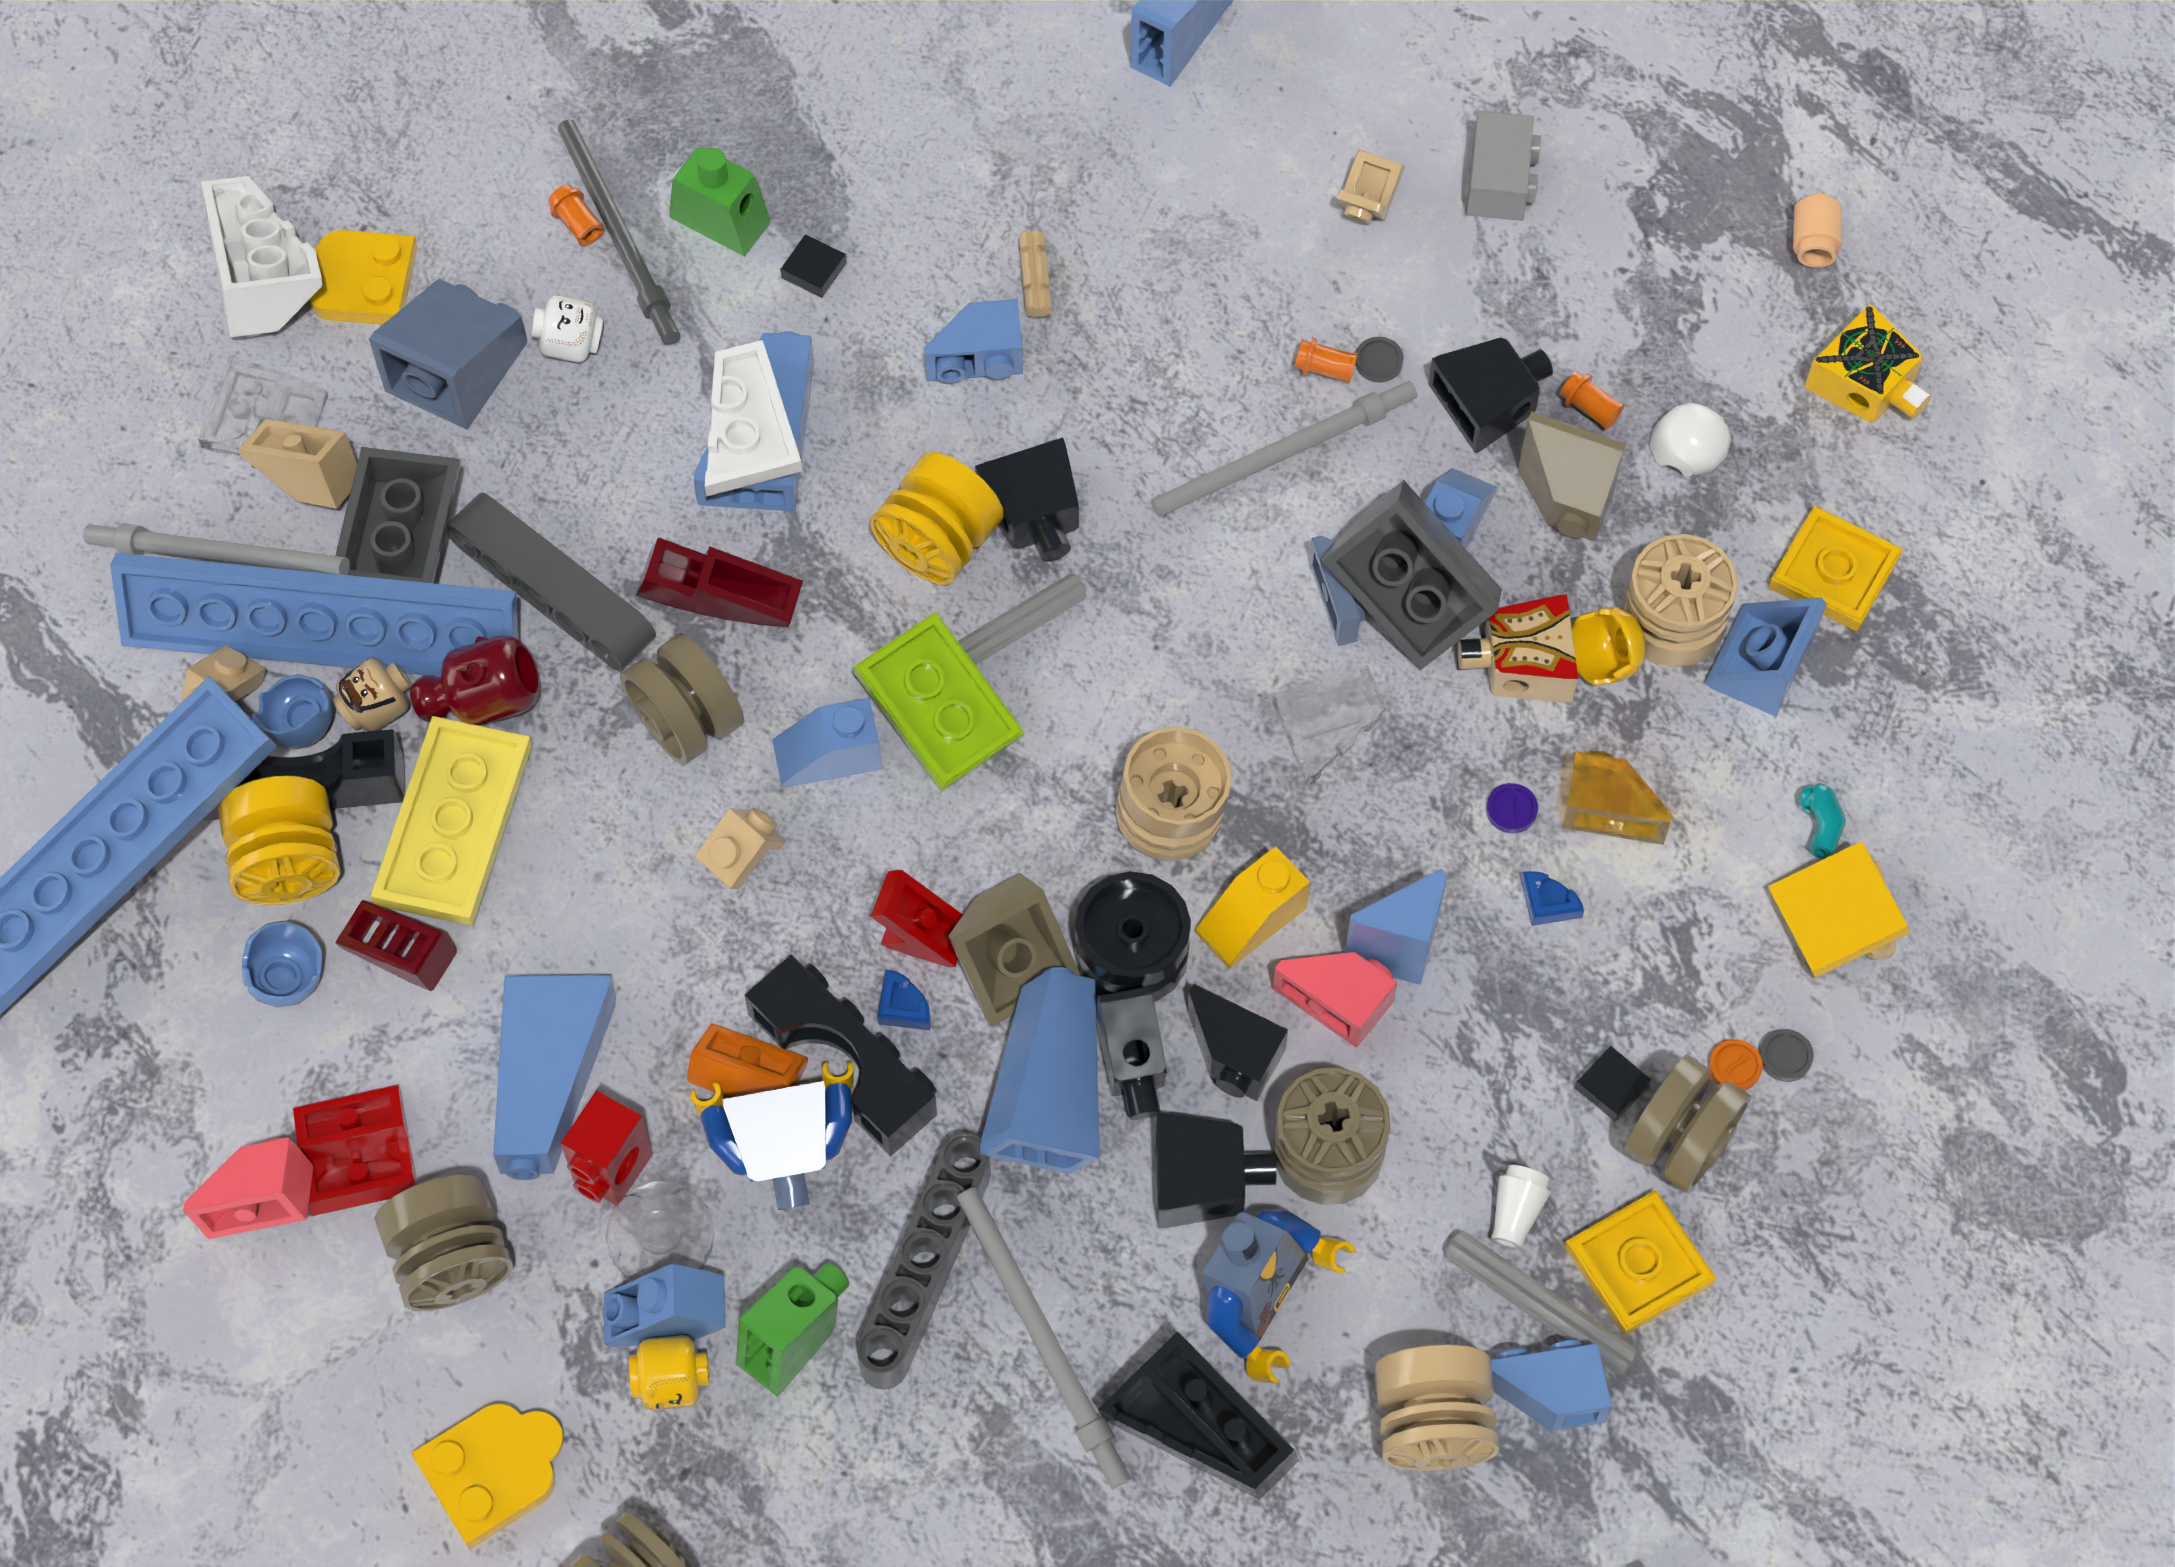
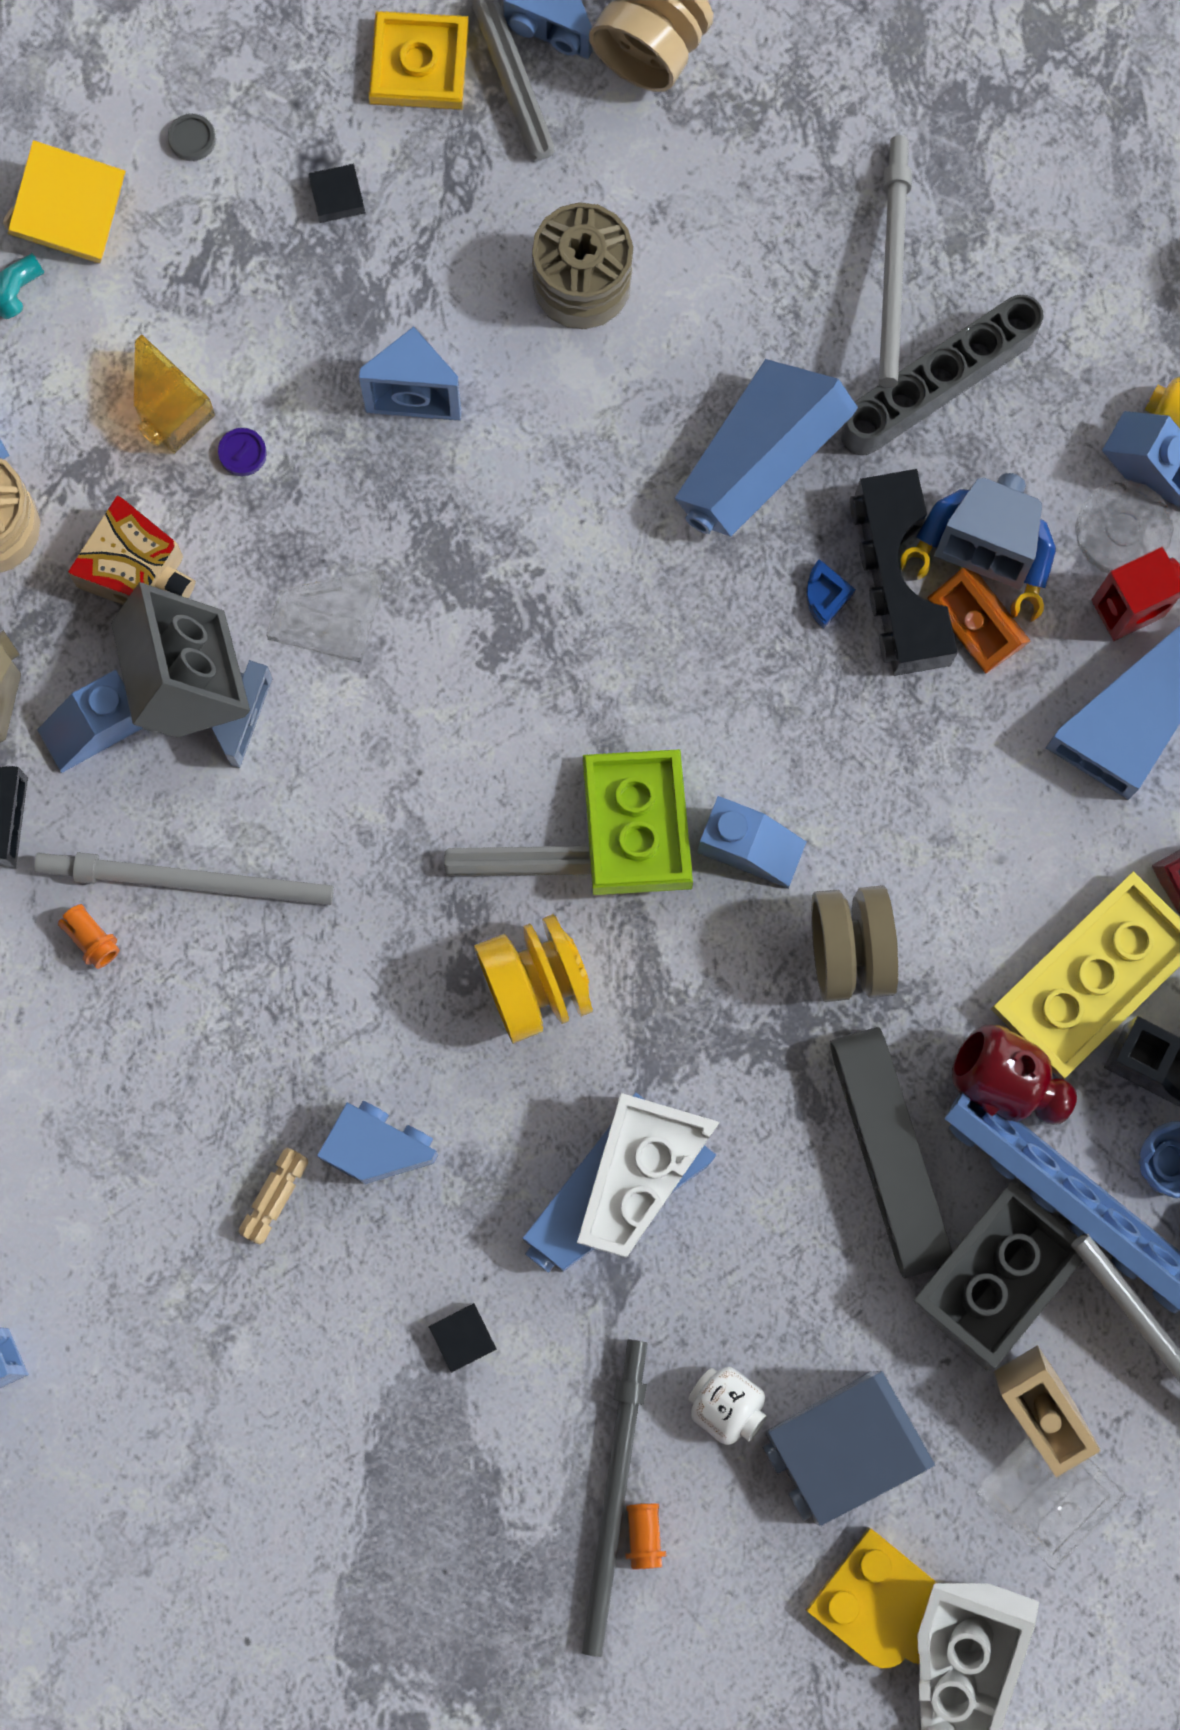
camera: 150 degrees left, 15 degrees up
(372, 694) = (1104, 1133): tan head -> none
(718, 585) = (750, 1054): dark red slope -> none
(719, 200) = (511, 1454): bright green torso -> none
(739, 845) = (874, 802): tan bracket -> none
(789, 1325) = (1075, 379): bright green torso -> none
(915, 919) = (775, 640): red slope -> none
(1006, 943) = (718, 575): dark tan slope -> none
(1035, 497) = (430, 961): black torso -> none
(1130, 1030) = (681, 428): black torso -> none
(1133, 935) = (622, 484): black wheel -> none
(1187, 773) = (502, 580): tan wheel -> none
(1200, 1419) = (819, 132): black wedge -> none
(1204, 1169) = (690, 311): black torso -> none
(1235, 1043) = (598, 388): black slope -> none
(1254, 907) = (507, 486): yellow slope -> none
(1254, 1275) = (705, 204): torso -> none
(1338, 991) = (490, 379): coral slope -> none
(1379, 359) = (38, 916): dark grey piece -> none
(1519, 1202) = (474, 147): white cone -> none
(1549, 900) = (272, 360): blue tile -> none
(1608, 645) = (64, 516): yellow hair -> none
(1694, 1128) = (316, 103): dark tan wheel -> none
(1737, 1063) = (235, 153): orange piece -> none

